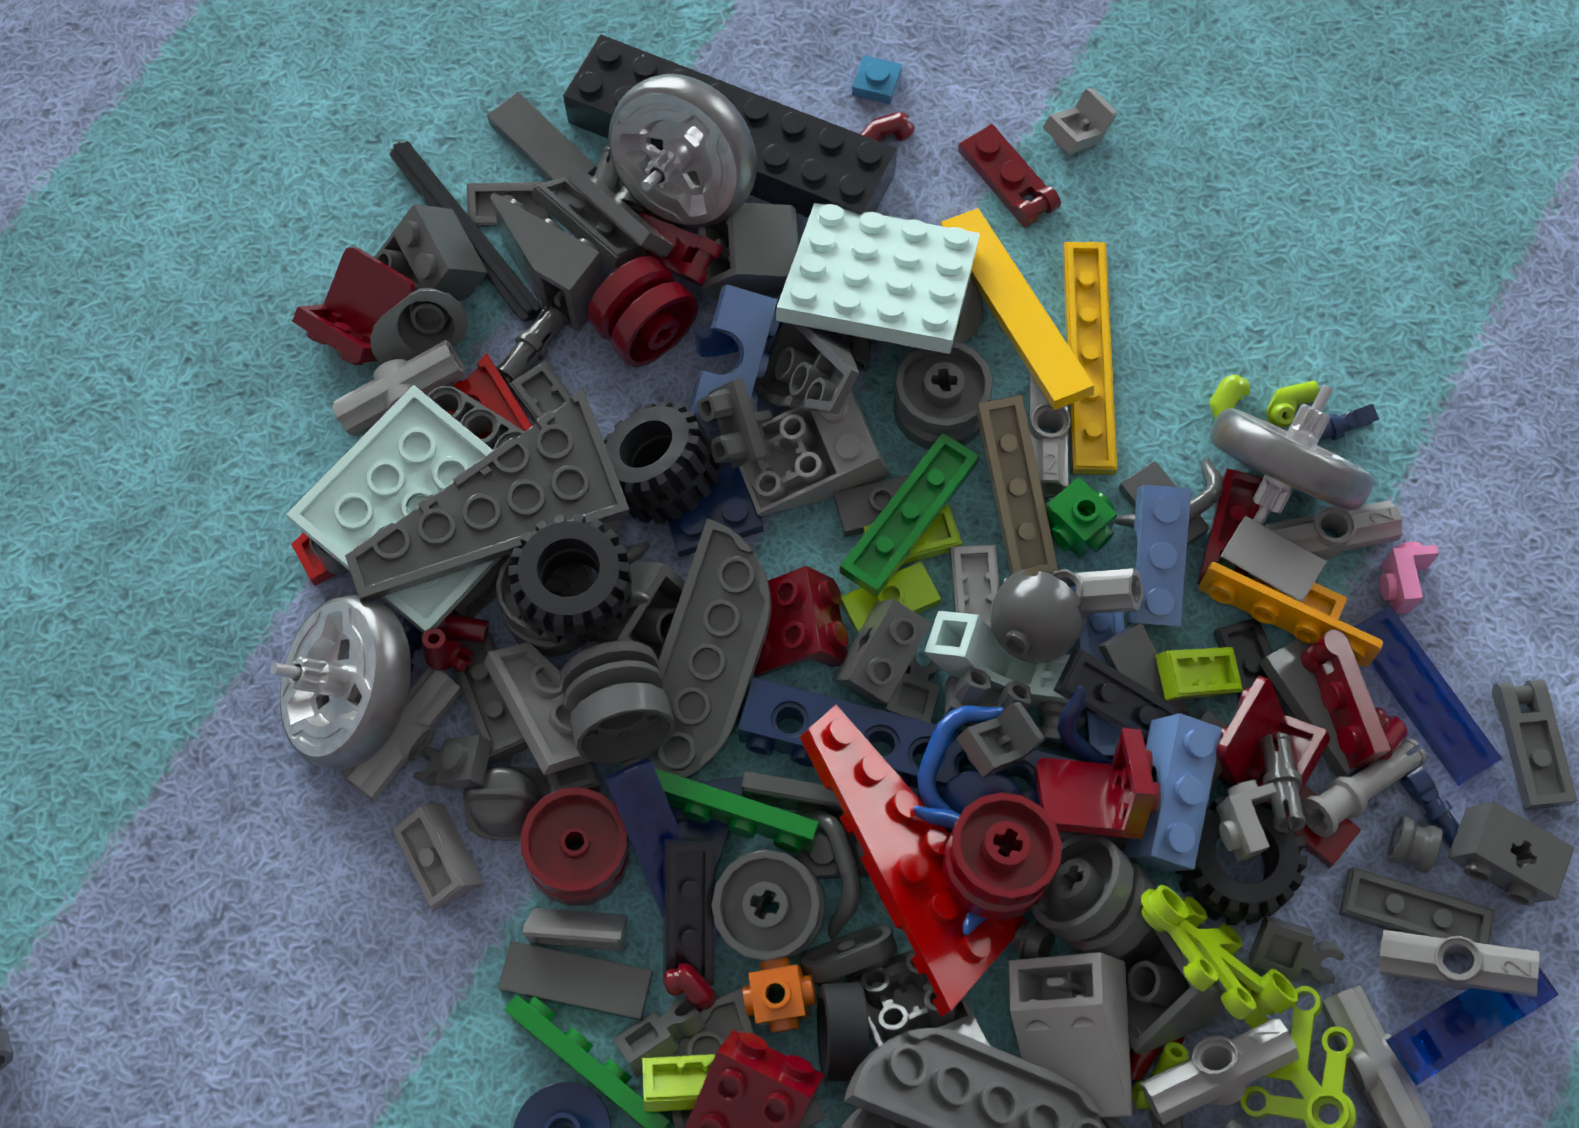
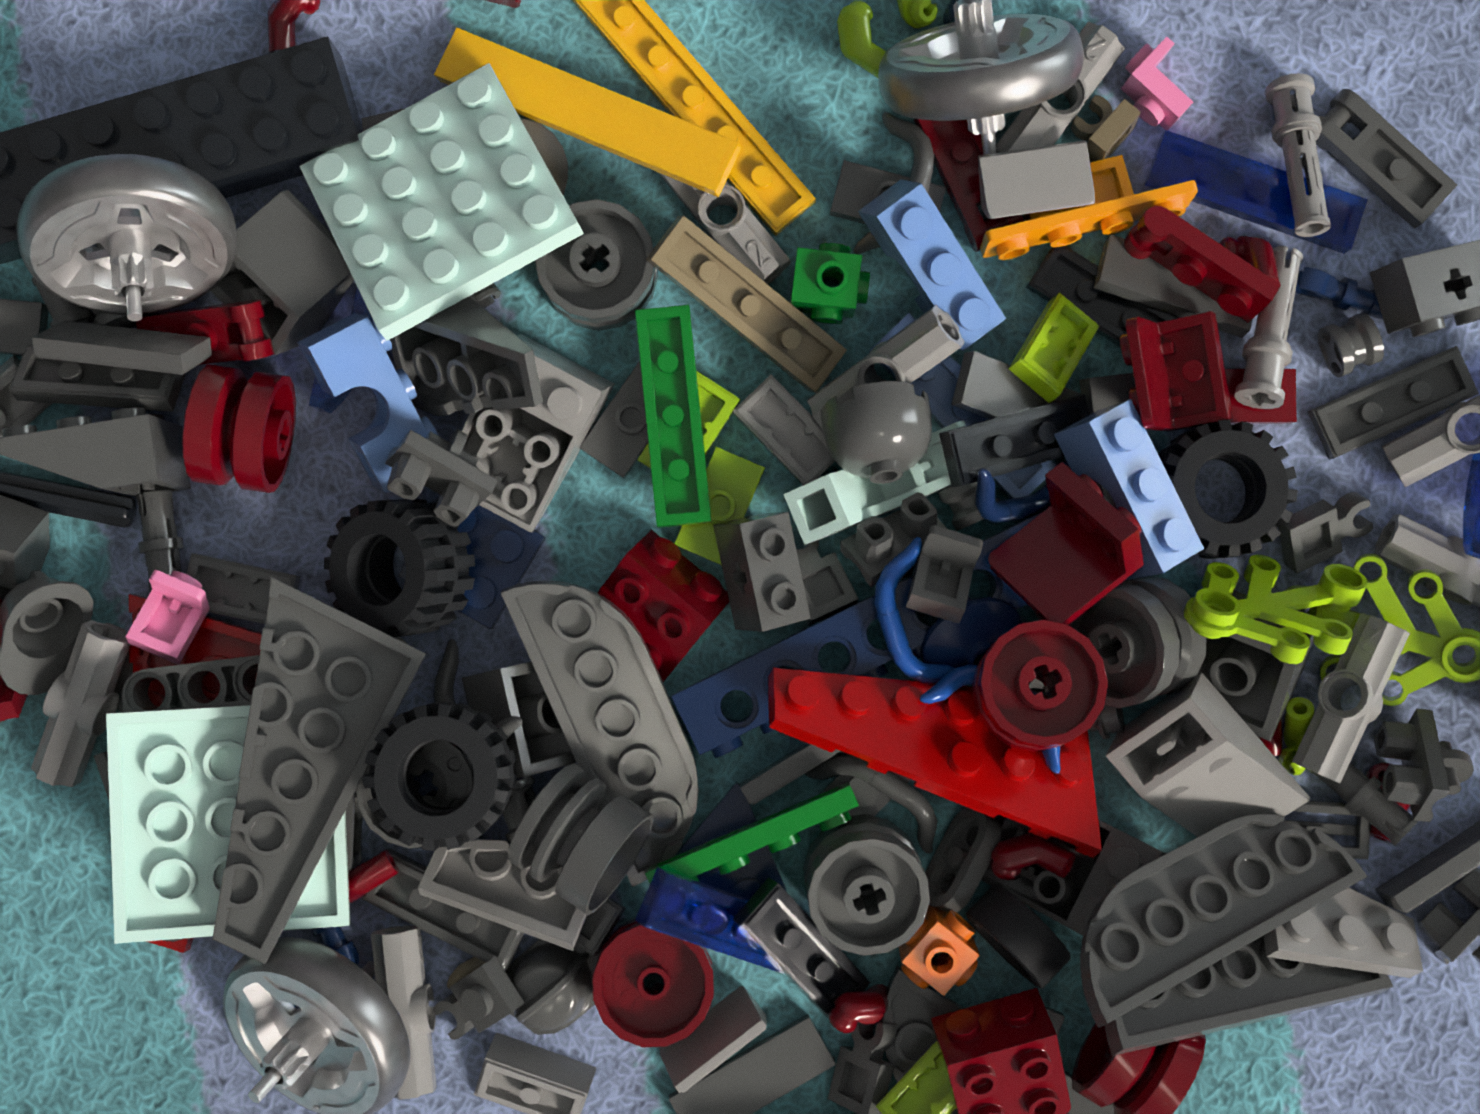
camera: 45 degrees left, 20 degrees up
(444, 653) = (375, 920): dark red arm -> none
(500, 378) = (169, 616): none -> bright pink bracket
(903, 979) = (1026, 850): none -> dark red arm
(1239, 822) = (1215, 476): light grey bracket -> none
(1287, 782) = (1213, 397): dark grey pin -> none
(1352, 578) = (1110, 131): none -> dark tan tile
(1452, 721) = (1297, 135): none -> light grey pin

